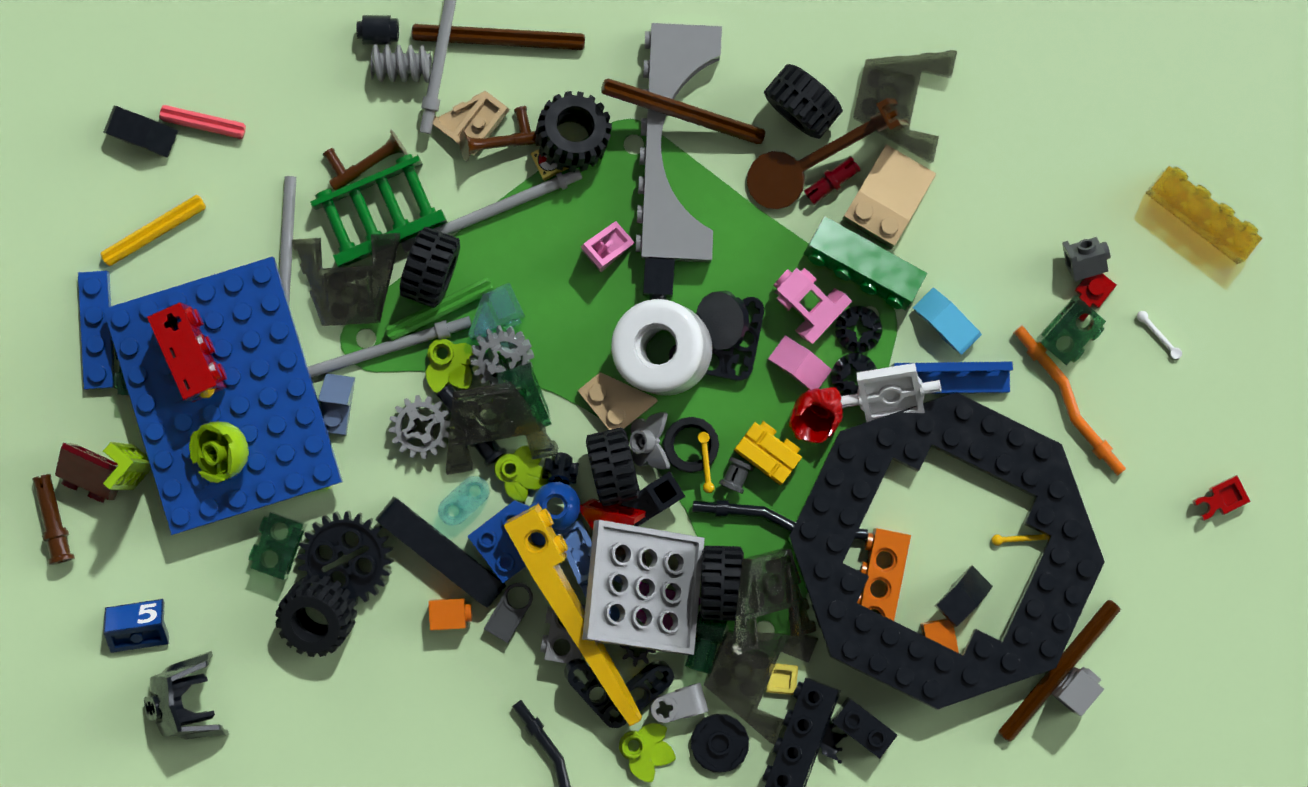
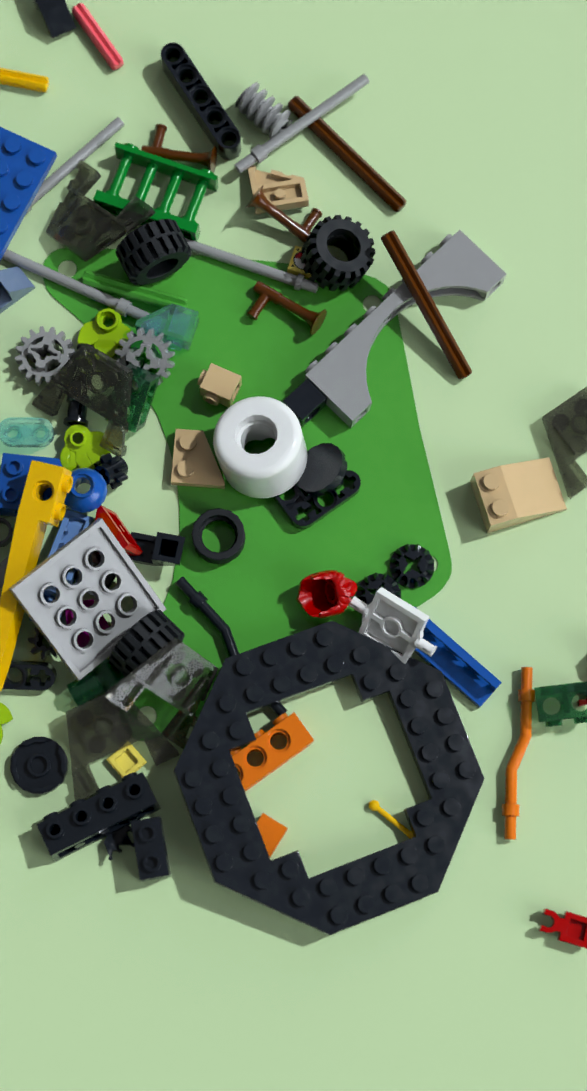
camera: 35 degrees right, 10 degrees down
(330, 91) = (196, 90): none -> black beam
(378, 29) = (270, 78): black brick -> none
(545, 213) = (266, 293): none -> reddish brown piece
(579, 325) = (219, 385): none -> tan brick
(607, 246) = (288, 350): bright pink slope -> none
(612, 467) = (148, 497): black tyre -> none
(646, 441) = (188, 504): light grey animal -> none
(684, 701) = (41, 710): light grey piece -> none
(703, 438) = (230, 537): yellow hinge -> none
(736, 475) = (230, 586): dark grey bush -> none
(768, 453) = (266, 590): yellow brick -> none
(779, 179) = (451, 412): reddish brown piece -> none
(793, 288) = (394, 488): bright pink tile -> none
(800, 363) = (348, 551): bright pink slope -> none
(803, 101) = (517, 370): black tyre -> none
(832, 180) = (488, 447): dark red pin -> none
(865, 264) = (458, 522): brick -> none
(947, 320) = (481, 615): medium azure slope -> none
(963, 596) = (311, 820): black slope -> none
(1055, 676) = (331, 943): reddish brown axle -> none
(1078, 690) = (332, 967): light grey brick -> none

